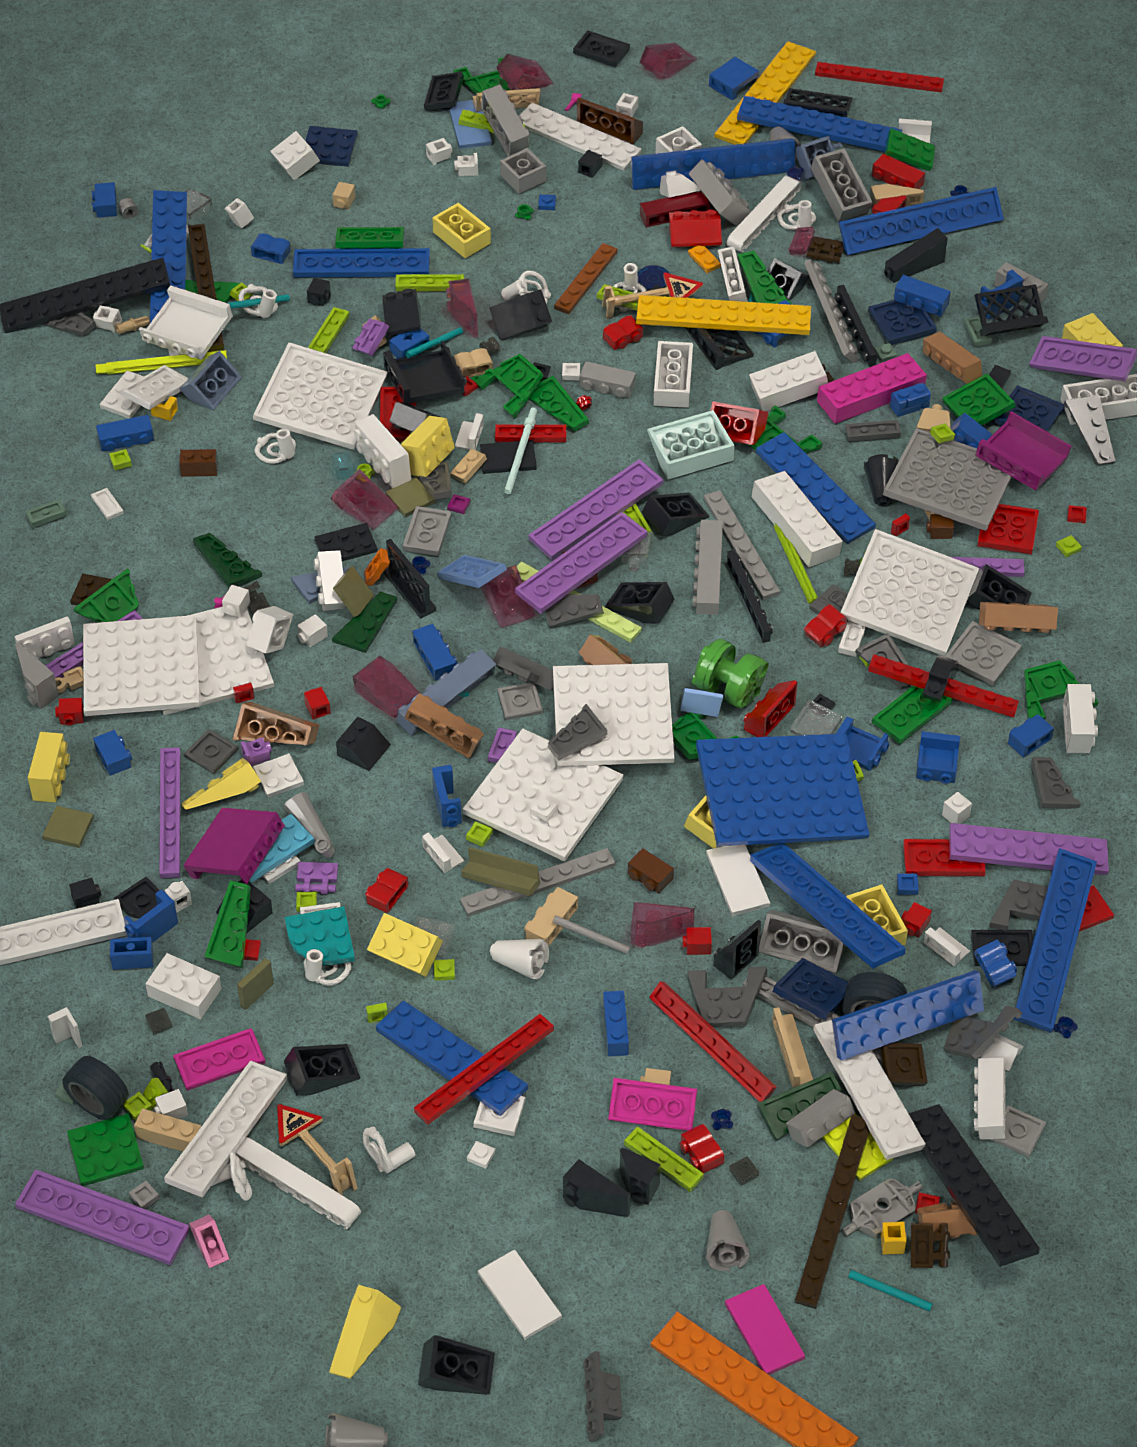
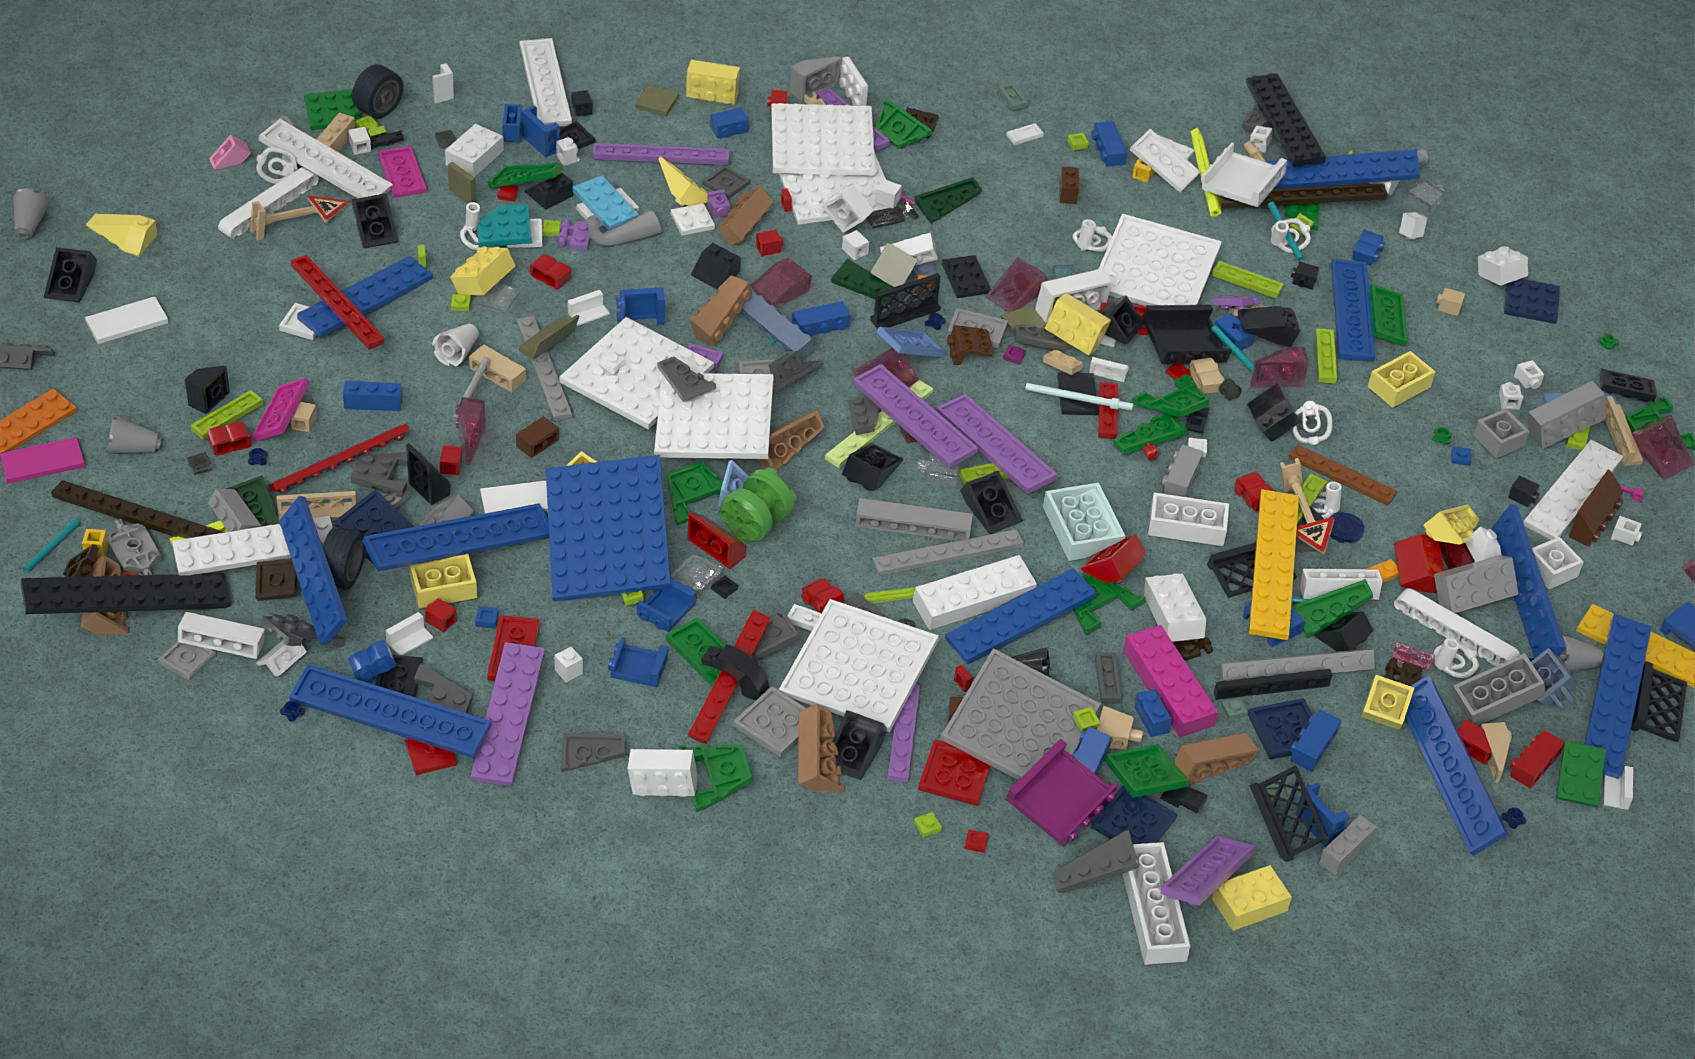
camera: 90 degrees right, 5 degrees down
(102, 1217) = (270, 102): medium lavender plate -> none
(105, 200) = (1432, 141): blue brick -> none
(211, 381) = (1177, 199): sand blue slope -> none
(235, 843) = (606, 176): magenta panel -> none
(386, 1161) = (273, 253): white piece -> none
(457, 534) = (968, 340): none -> reddish brown bracket
(479, 834) = (600, 331): lime plate -> none
(481, 1154) = (266, 309): white plate -> none
(594, 1192) = (203, 352): black slope -> none
(663, 198) = (1452, 525): none -> light yellow wedge
(747, 591) = (871, 544): black plate -> none
(867, 252) = (1387, 702): none -> light yellow brick
(919, 256) = (1386, 751): black slope -> none
(1030, 735) = (655, 735): blue brick -> none

